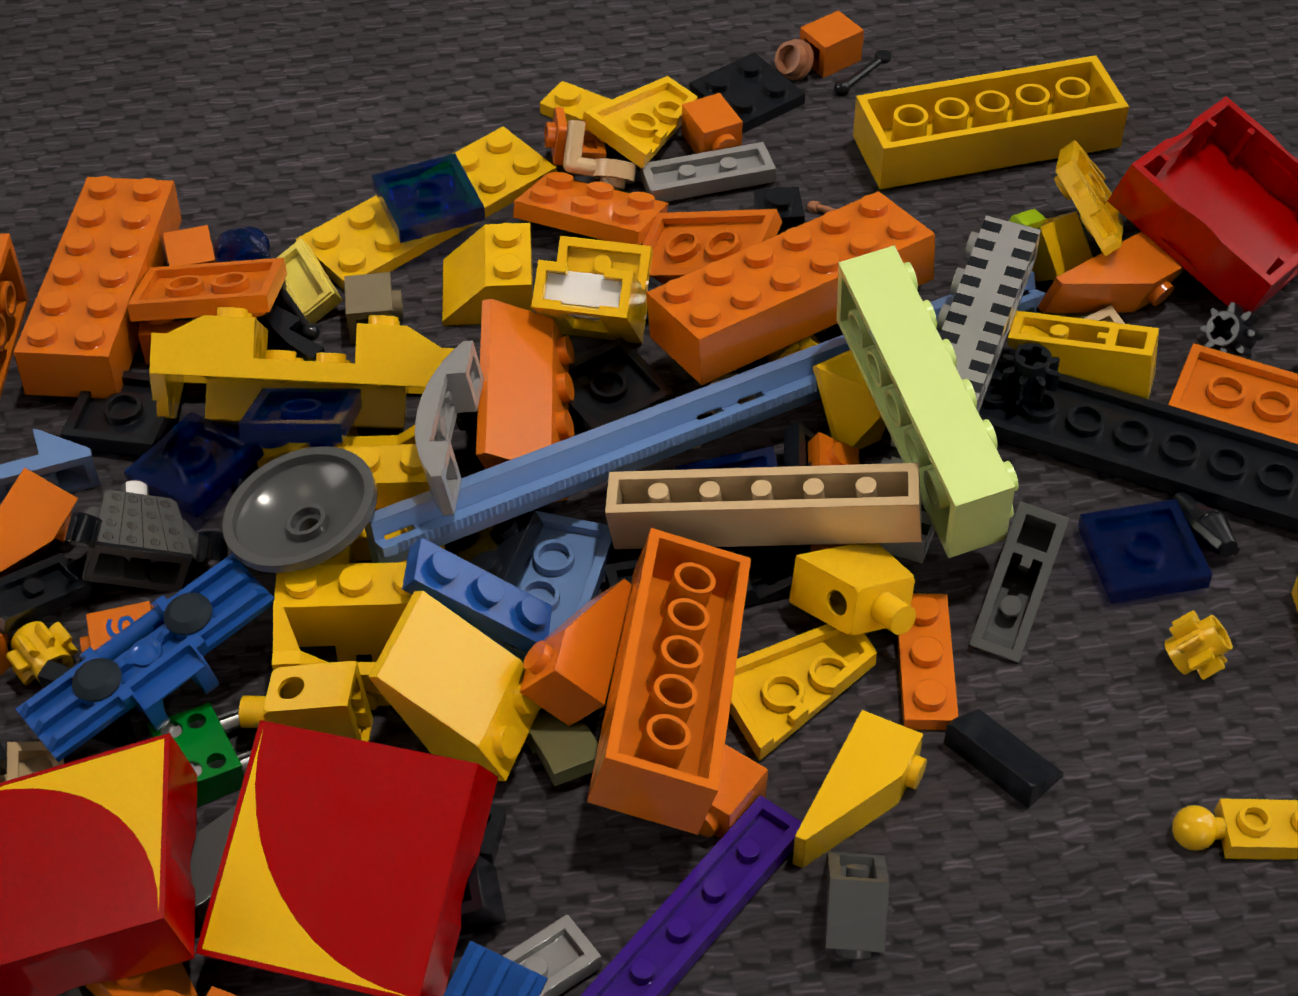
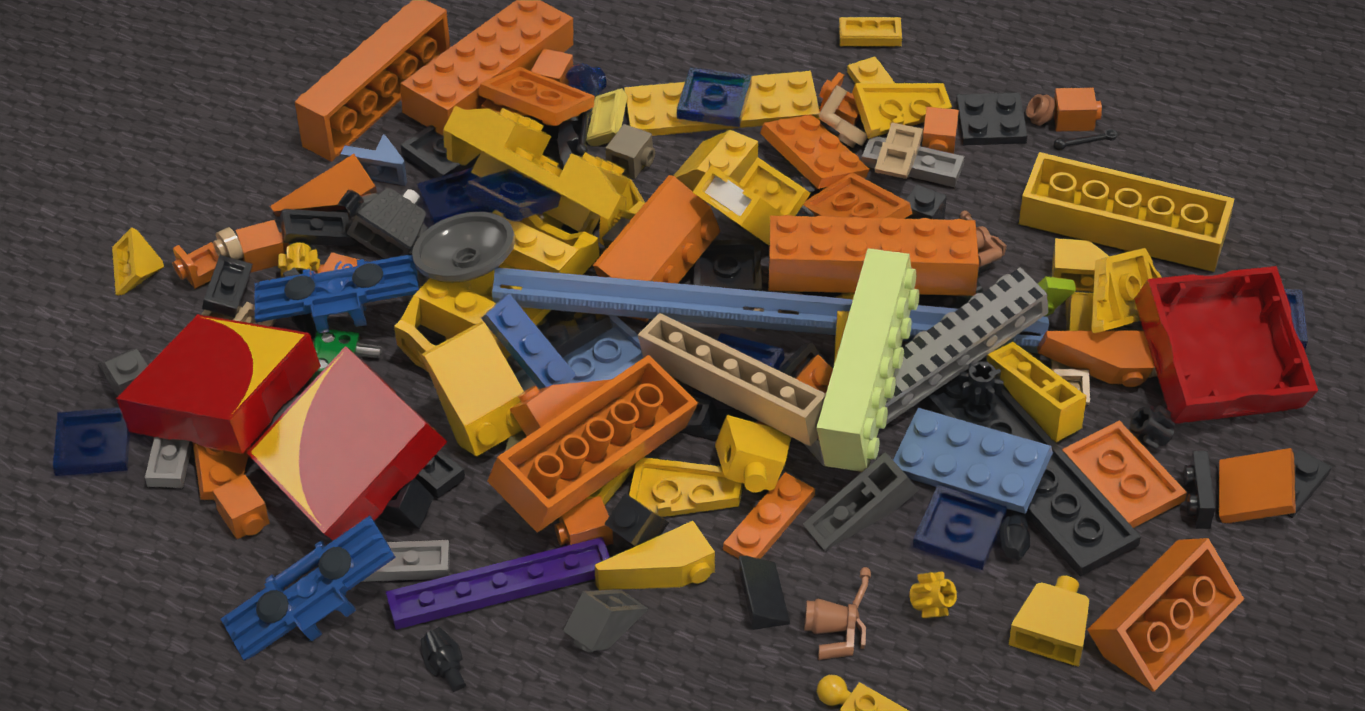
camera: 35 degrees right, 0 degrees up
(313, 698) = (402, 367): yellow torso -> none
(450, 391) = (574, 232): light grey slope -> none
(531, 57) = (870, 31): none -> yellow plate
(693, 165) = (899, 150): none -> tan slope
(798, 751) = (635, 521): none -> black brick
(997, 195) = (1076, 262): none -> yellow slope
(1103, 461) = (972, 459): none -> medium blue plate
(1107, 740) = (830, 617): none -> nougat piece

